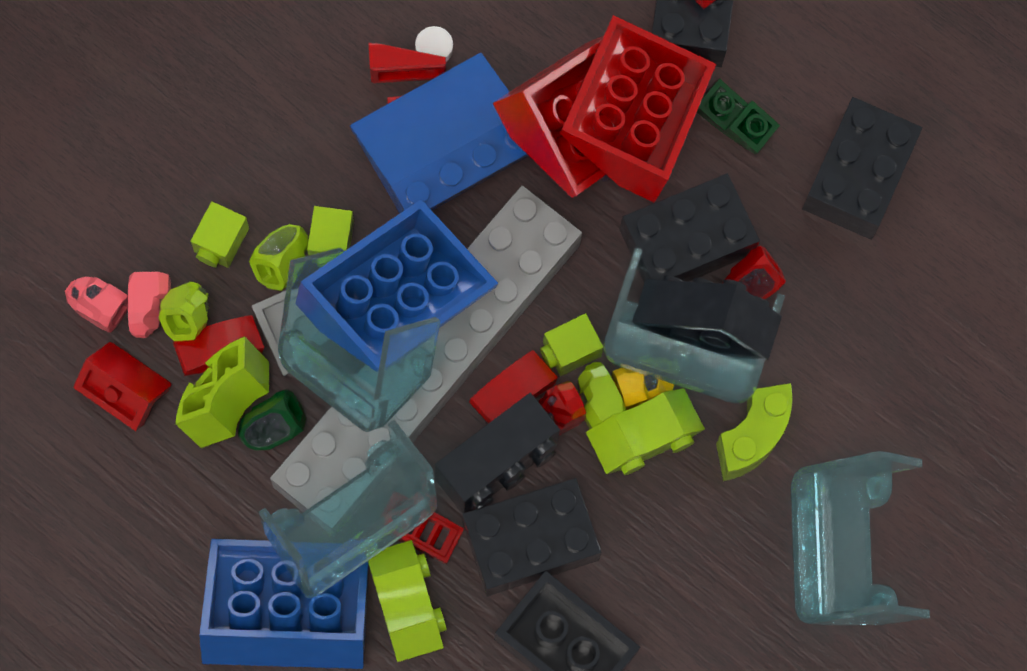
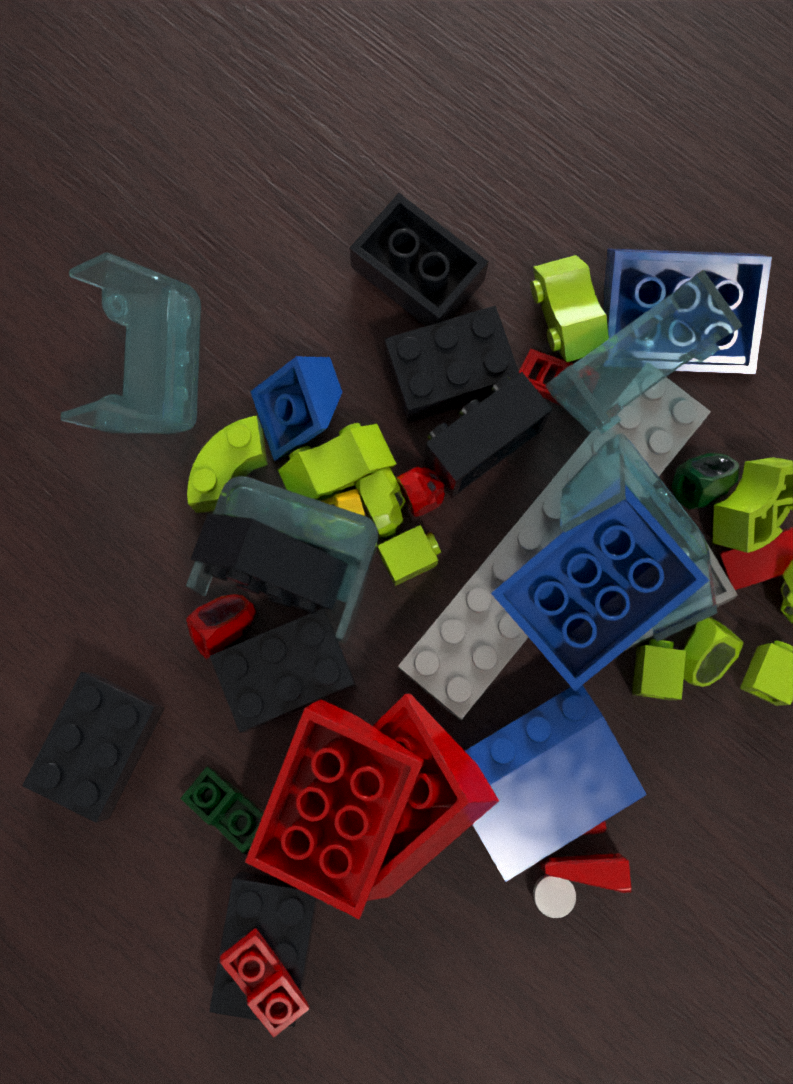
camera: 175 degrees left, 5 degrees up
(513, 384) = (467, 511): red slope -> none
(686, 494) = (297, 403): none -> blue slope

